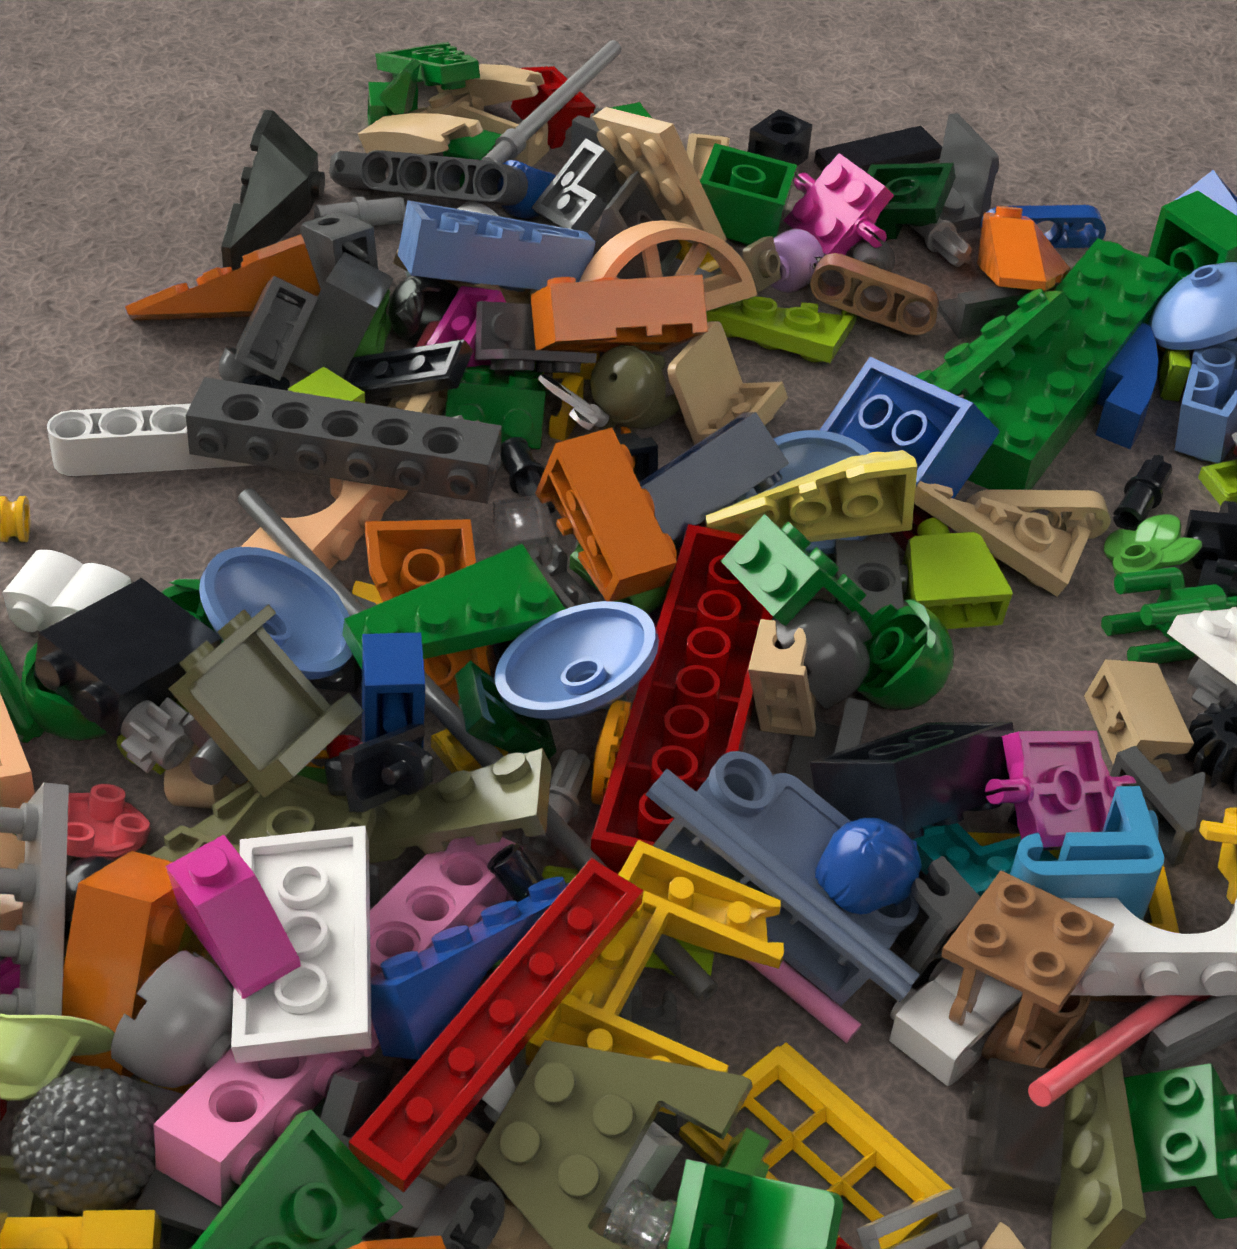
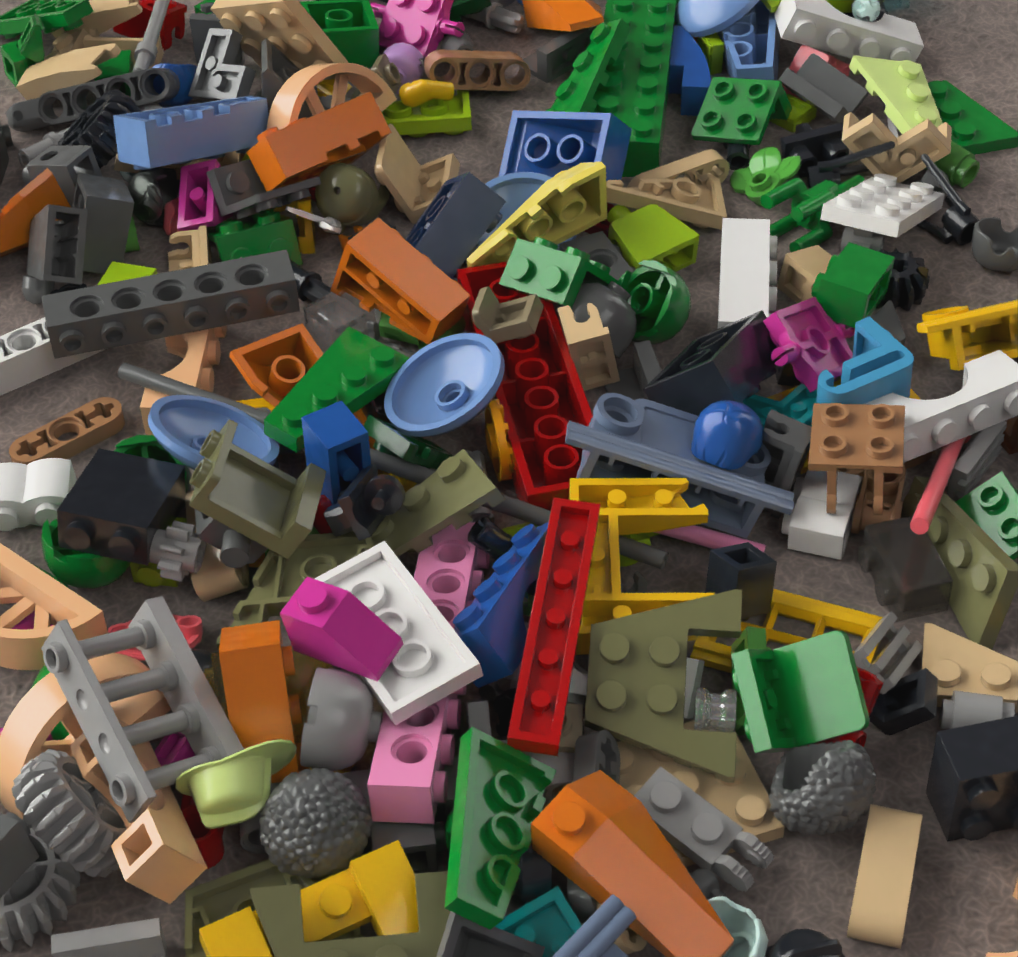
camera: 20 degrees left, 0 degrees up
(141, 537) = (90, 414): none -> medium nougat beam
(389, 212) = (96, 125): none -> black gear
(410, 370) = (181, 239): black tile -> none
(698, 608) = (508, 319): none -> dark tan bracket
(784, 1061) = (743, 569): none -> black brick
(796, 296) = (424, 90): none -> yellow arm
(1044, 663) = (746, 269): none -> white brick
(1160, 455) = (740, 110): none -> green bracket
(1160, 734) = (853, 283): none -> green brick

